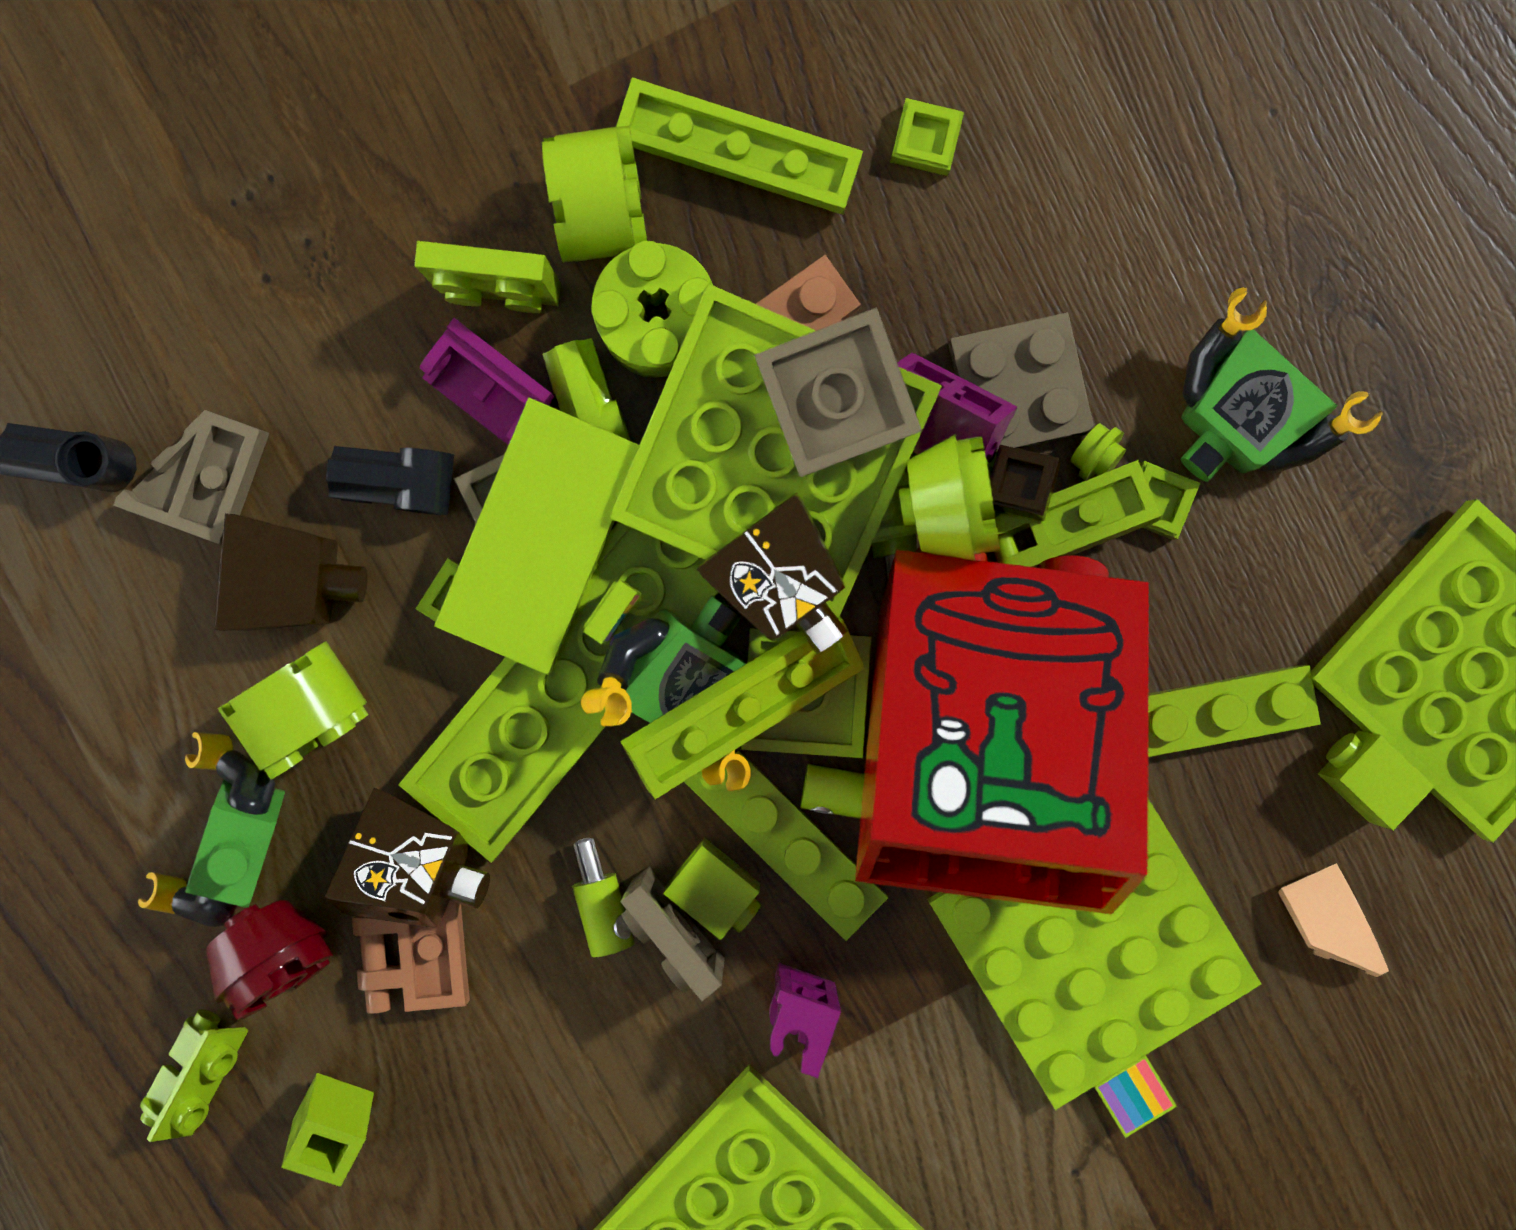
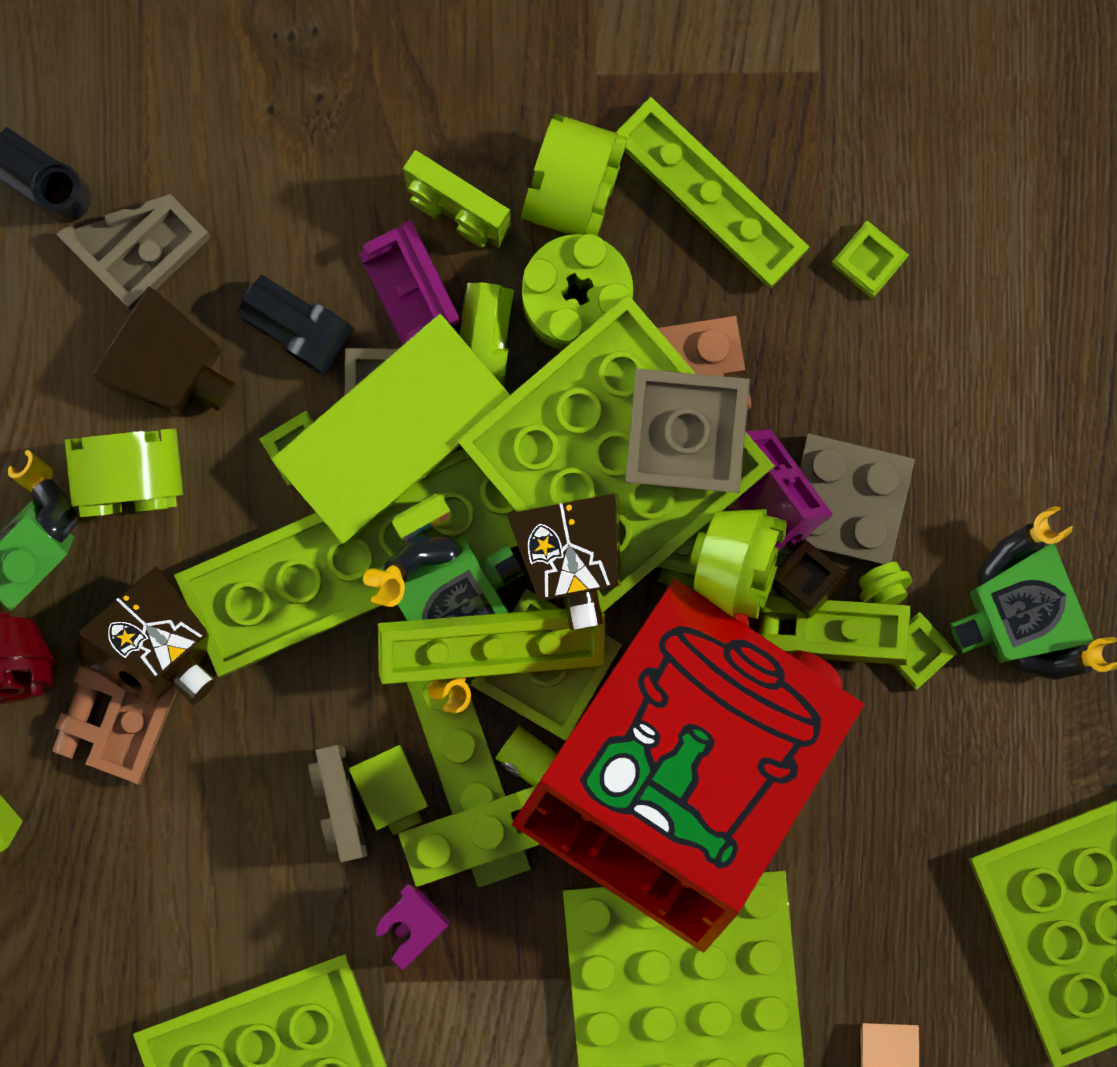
camera: 20 degrees right, 5 degrees down
(600, 904) = (290, 756): lime piece -> none
(811, 903) = (465, 839): none -> lime plate
(1231, 710) = (879, 851): lime plate -> none
(1375, 778) = (982, 967): lime brick -> none

